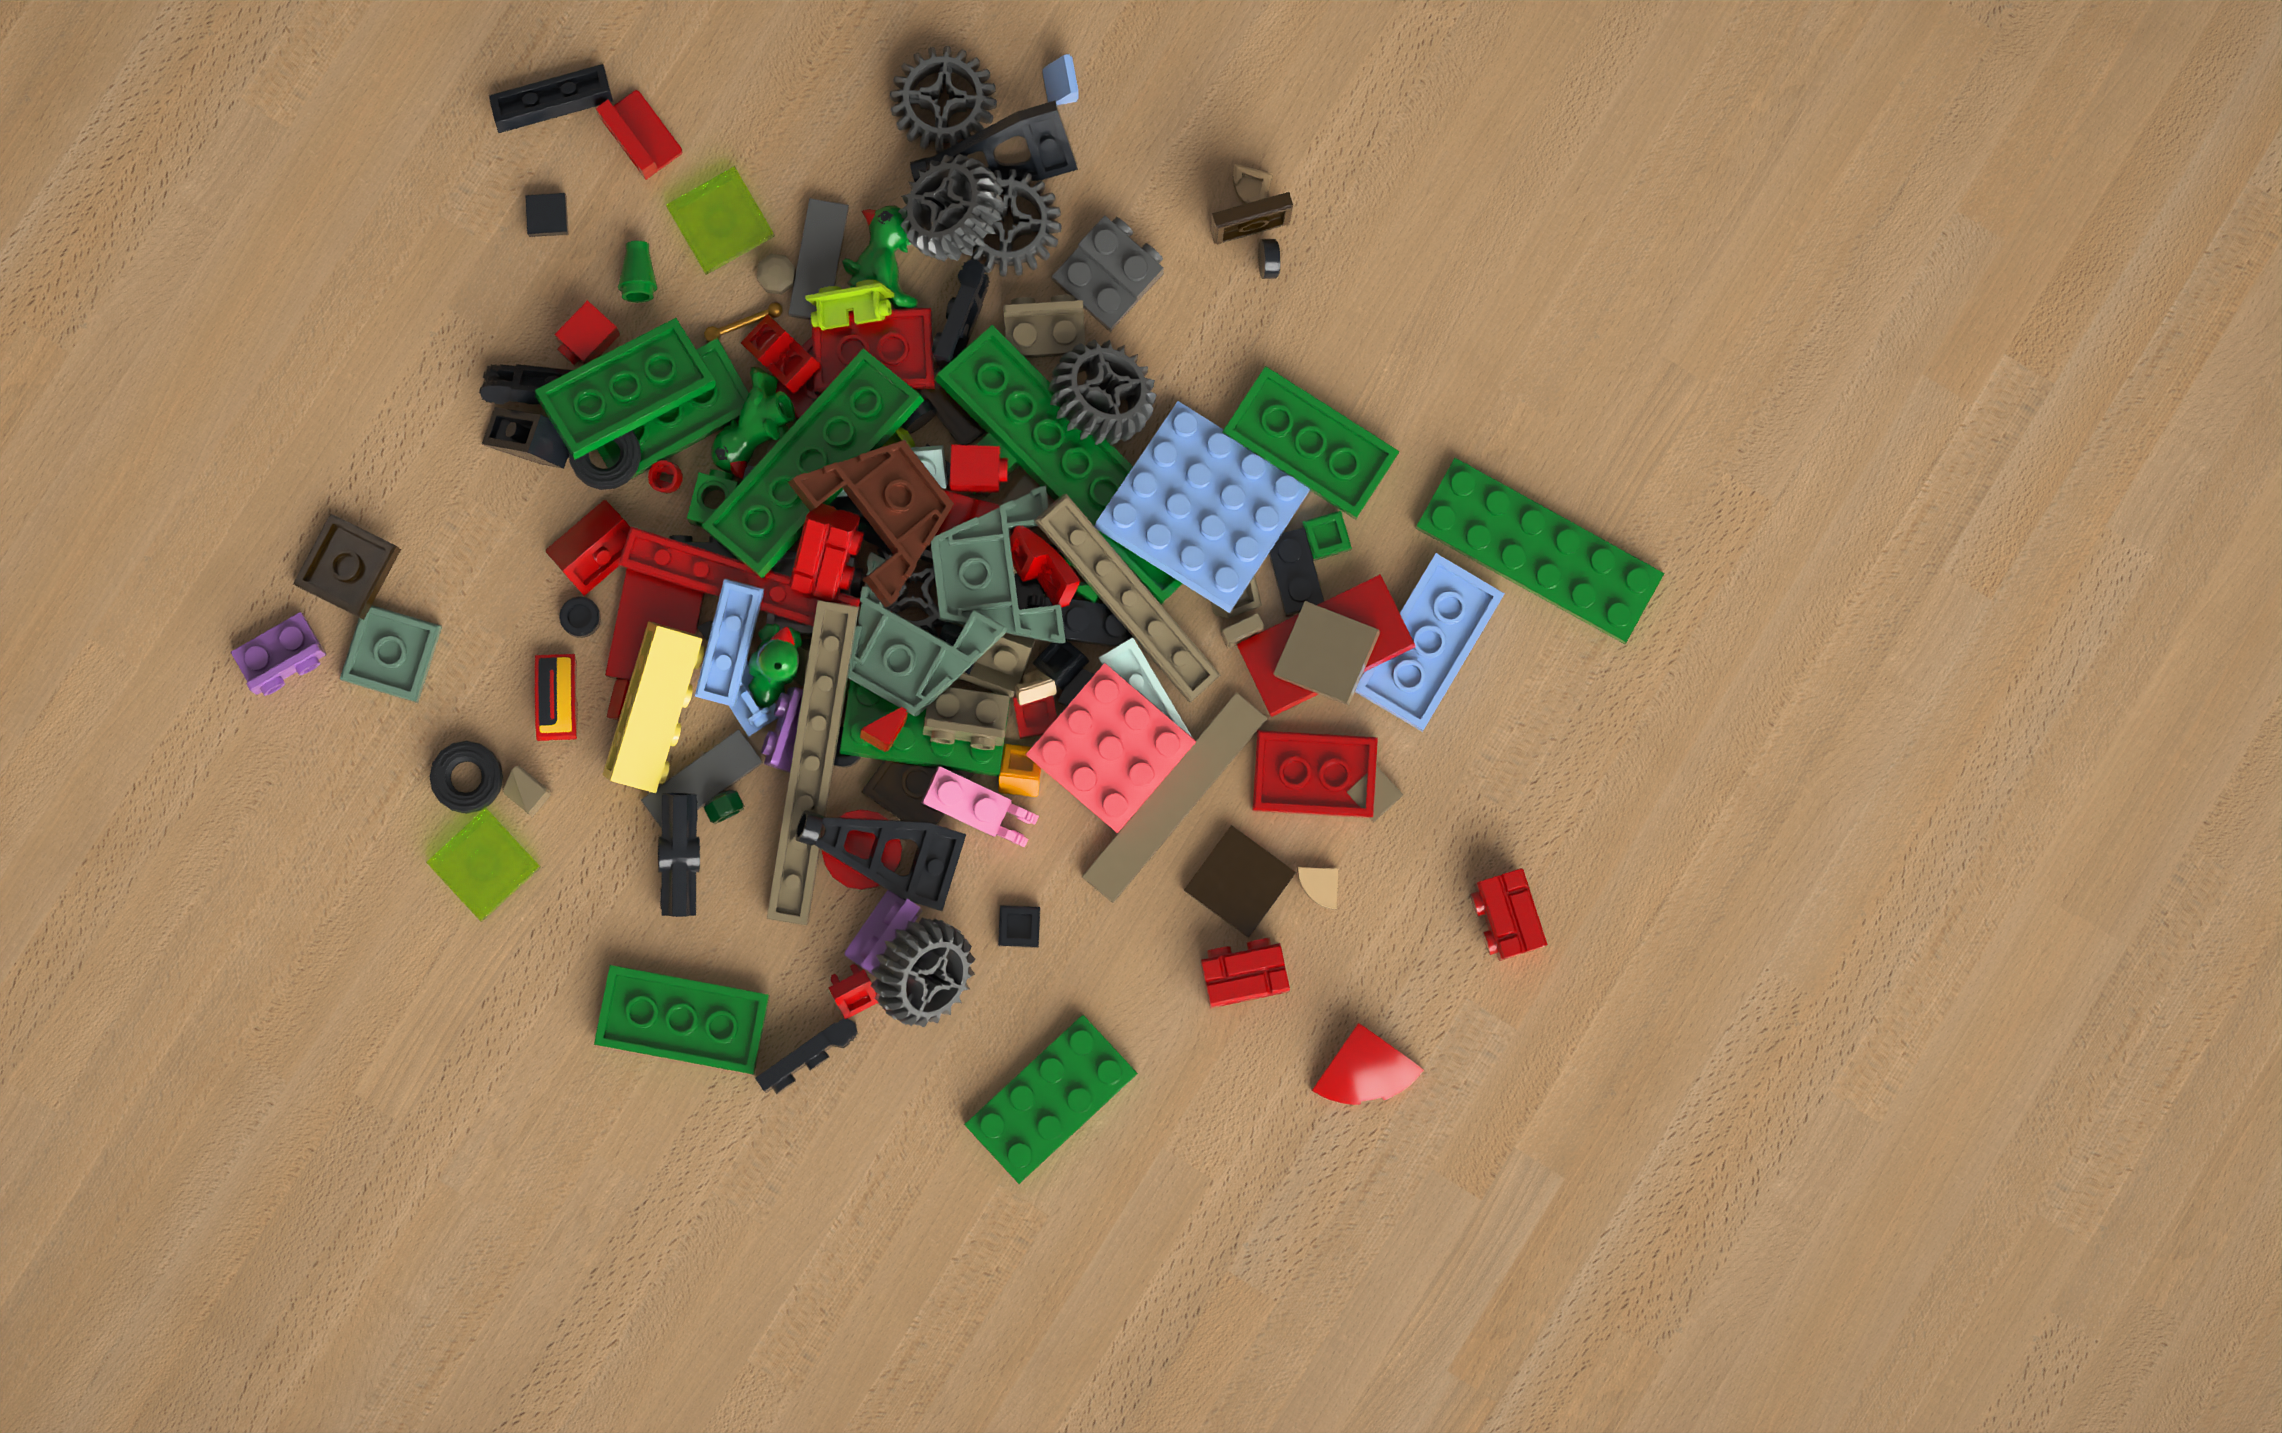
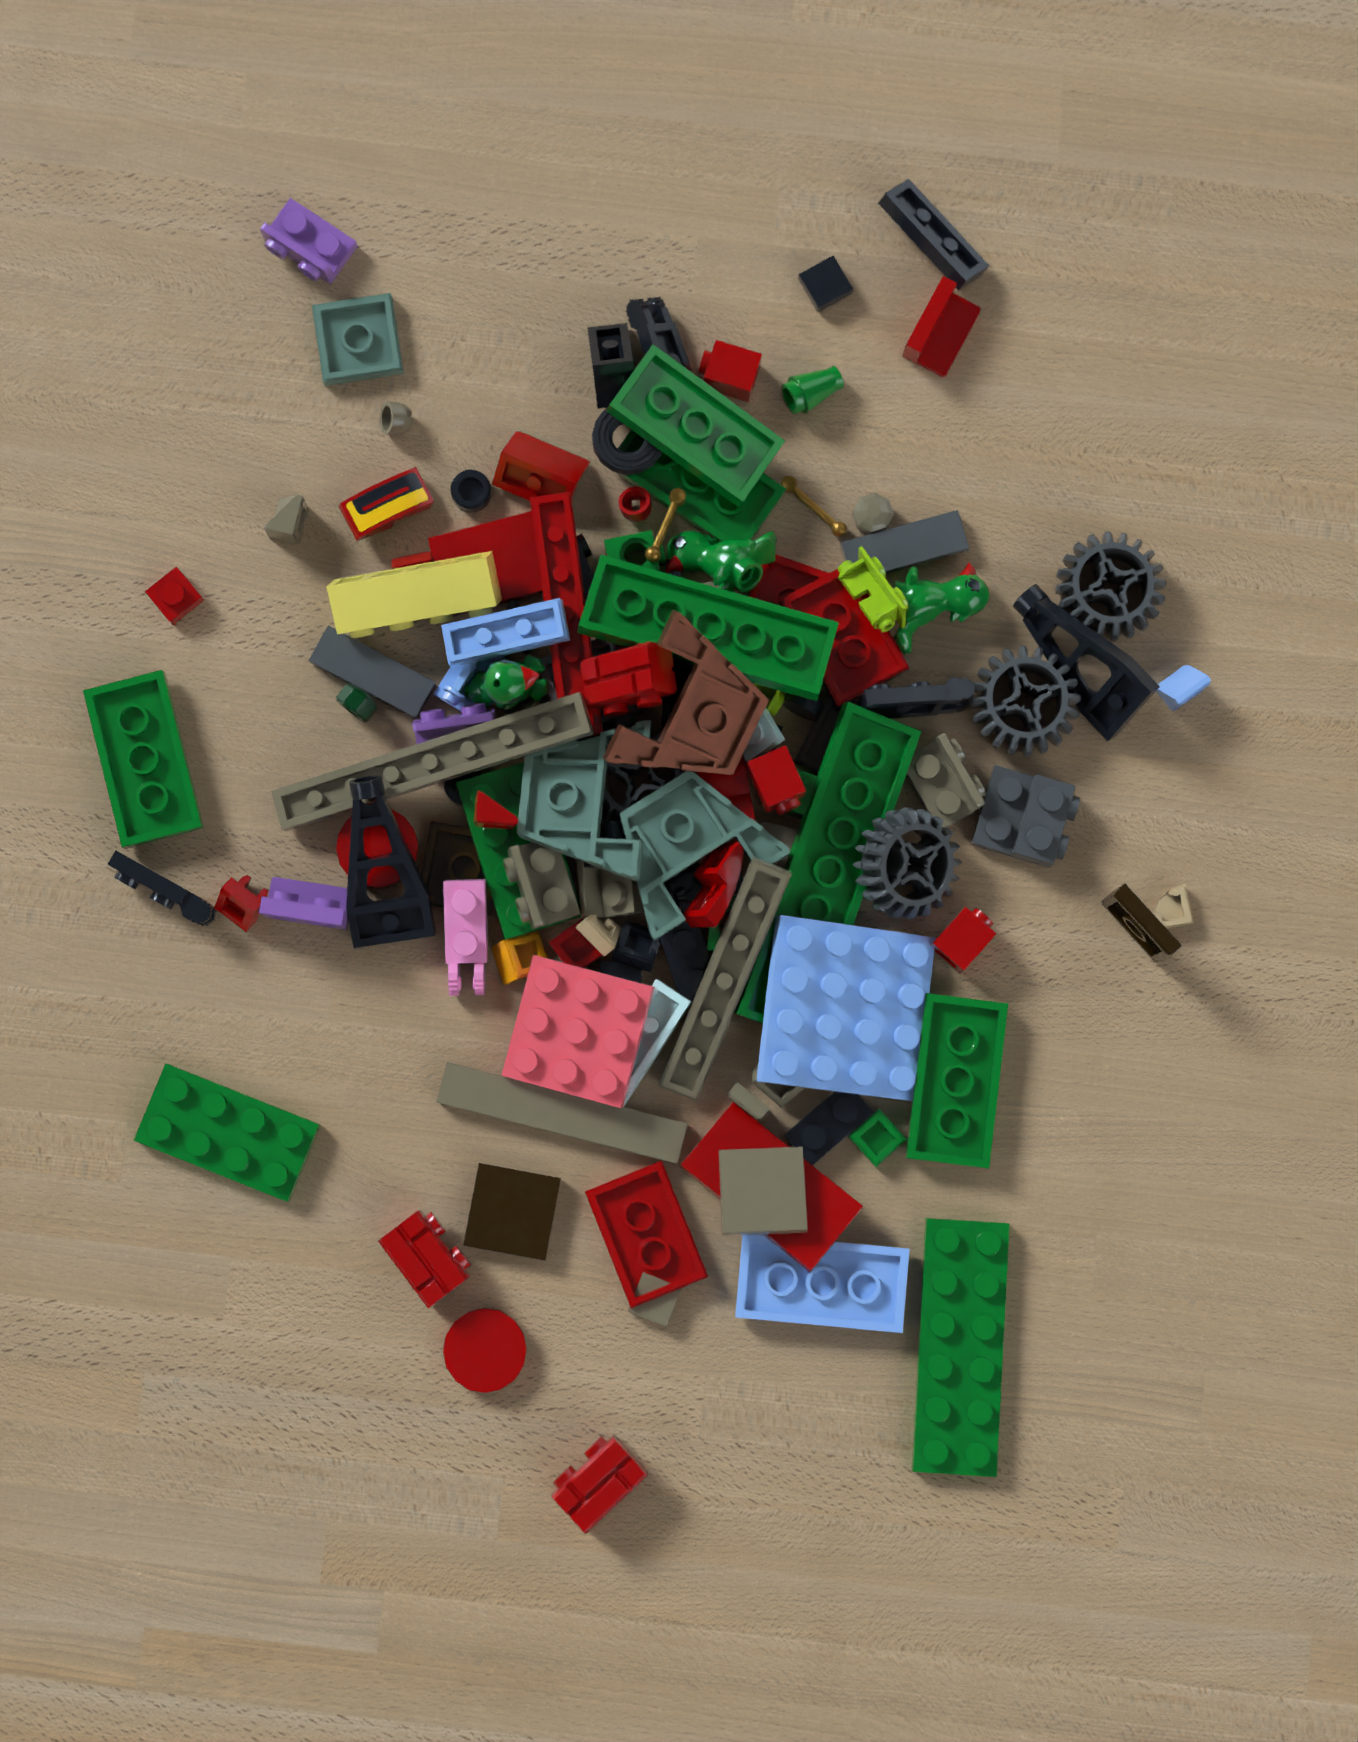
camera: 65 degrees right, 0 degrees up
(347, 566) = (416, 262): dark brown tile -> none
(466, 752) = (262, 439): black tyre -> none
(481, 653) = (395, 418): none -> dark tan hinge
(483, 864) = (203, 514): clear neon green tile -> none
(545, 925) = (174, 595): none -> red plate
(678, 854) = (291, 682): black piece -> none
(680, 437) = (677, 498): none -> pearl gold hinge
(720, 220) = (897, 440): clear neon green tile -> none
(780, 354) = (799, 552): red slope -> none
(923, 972) = (284, 957): dark grey gear -> none
(945, 200) = (1010, 640): dark grey gear -> none
(1019, 926) = (374, 1026): black tile -> none
(1191, 376) = (964, 938): none -> red brick
(1269, 258) = (1111, 958): black tile -> none
(1320, 885) = (544, 1289): tan tile -> none
(1348, 961) = (485, 1350): none -> red tile
(1366, 1070) = (389, 1416): brick -> none

